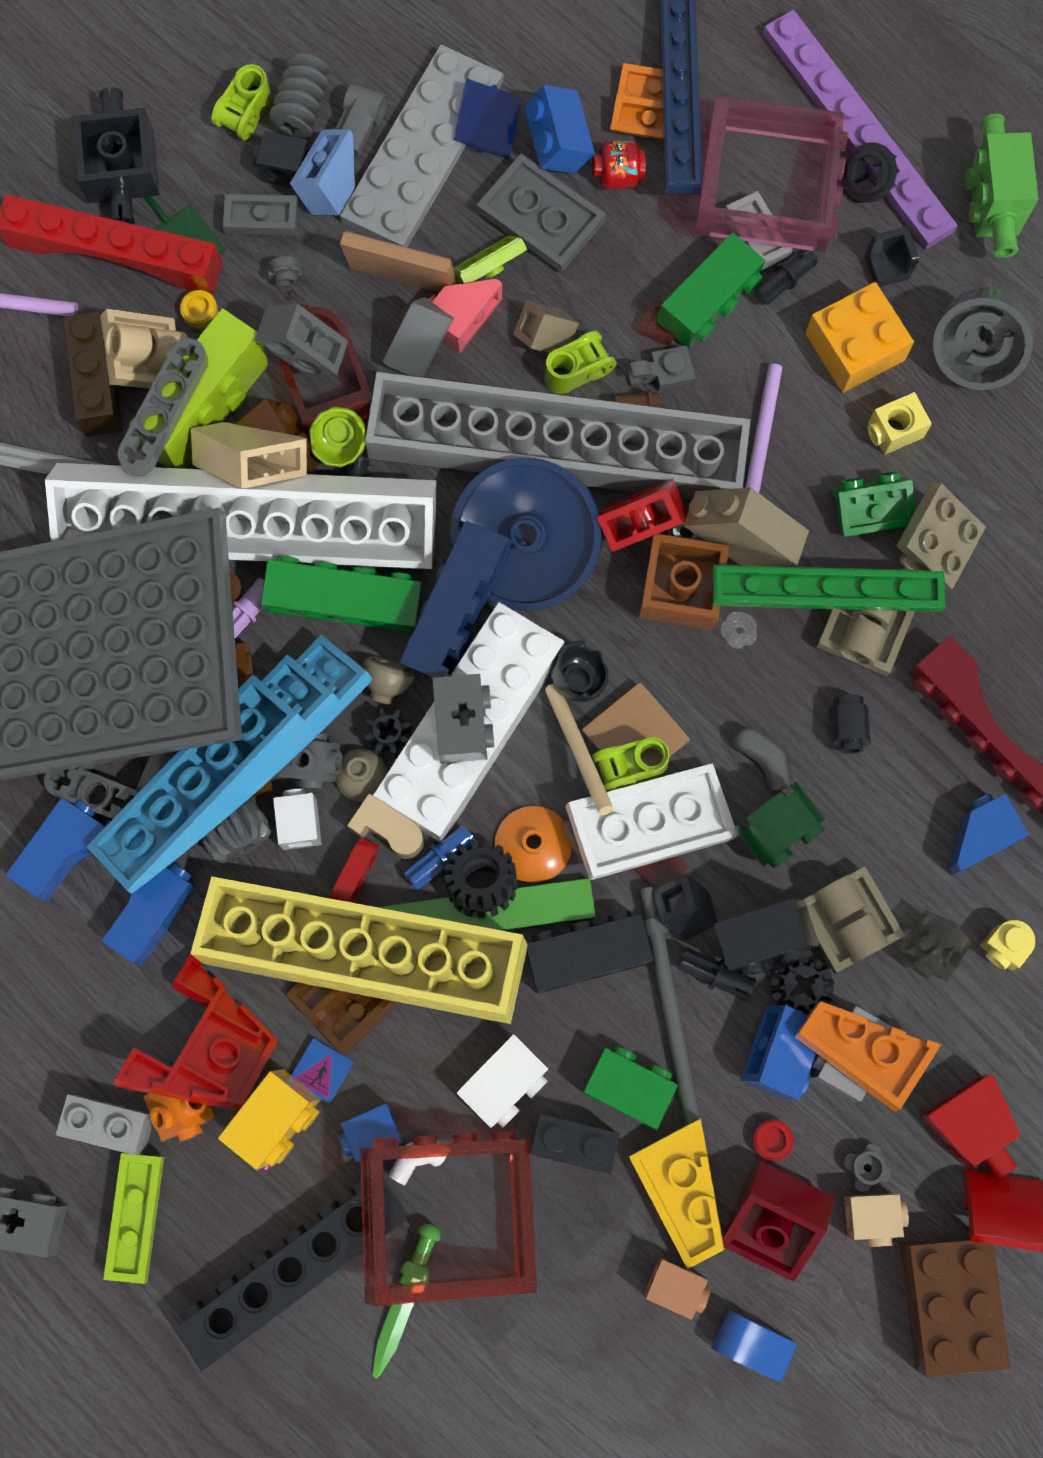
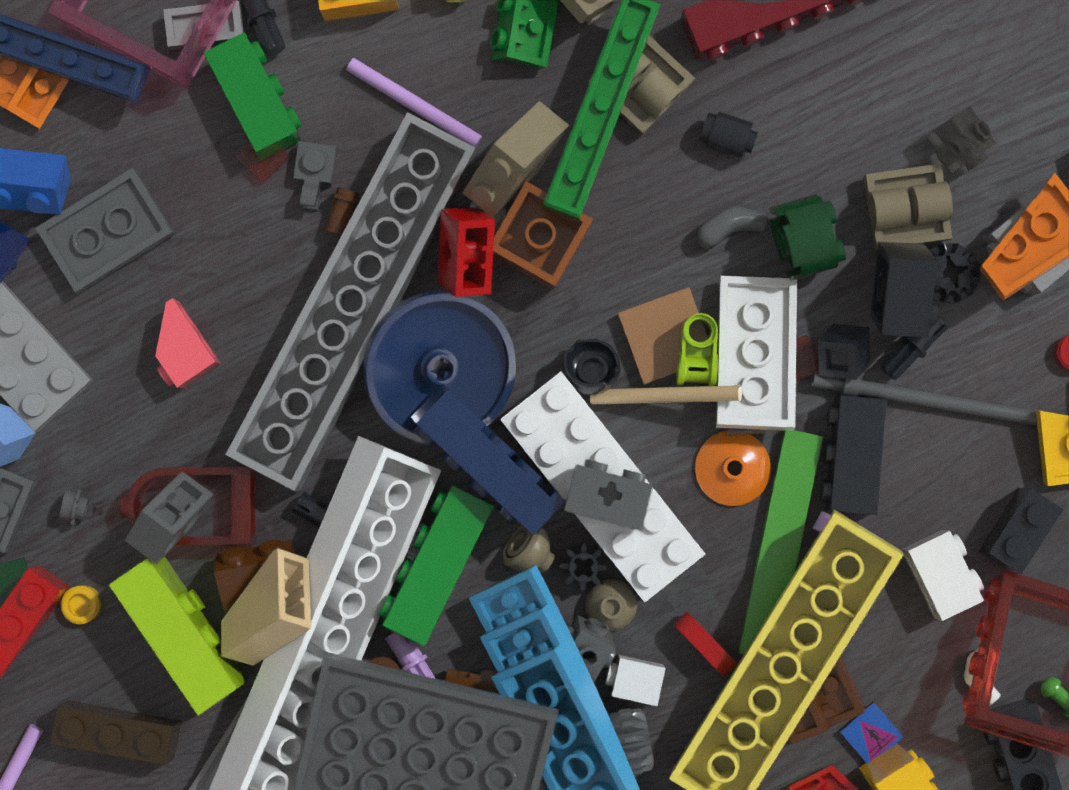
camera: 70 degrees left, 10 degrees up
(137, 346) = (111, 674): tan plate -> none
(167, 408) = (190, 682): dark grey beam -> none
(337, 436) = (277, 515): lime hair -> none
(368, 1126) = (944, 709): blue brick -> none
(389, 826) = (687, 587): tan leg -> none
(397, 262) = (114, 392): medium nougat tile -> none
(418, 338) = (200, 400): dark grey slope -> none
(435, 860) = (717, 559): blue axle -> none
(477, 860) = (731, 529): black tyre -> none
(489, 261) = (138, 301): lime plate -> none
(544, 327) = (230, 271): dark tan panel -> none
(583, 359) = (277, 246): lime piece -> none
(619, 165) = (83, 134): red head -> none
(630, 1087) = (988, 461): green brick -> none
(743, 621) = (610, 204): clear plate -> none
(778, 1059) = (1011, 323): blue brick -> none
(986, 831) = (874, 53): blue slope -> none
(1009, 944) = (980, 73): light yellow plate -> none

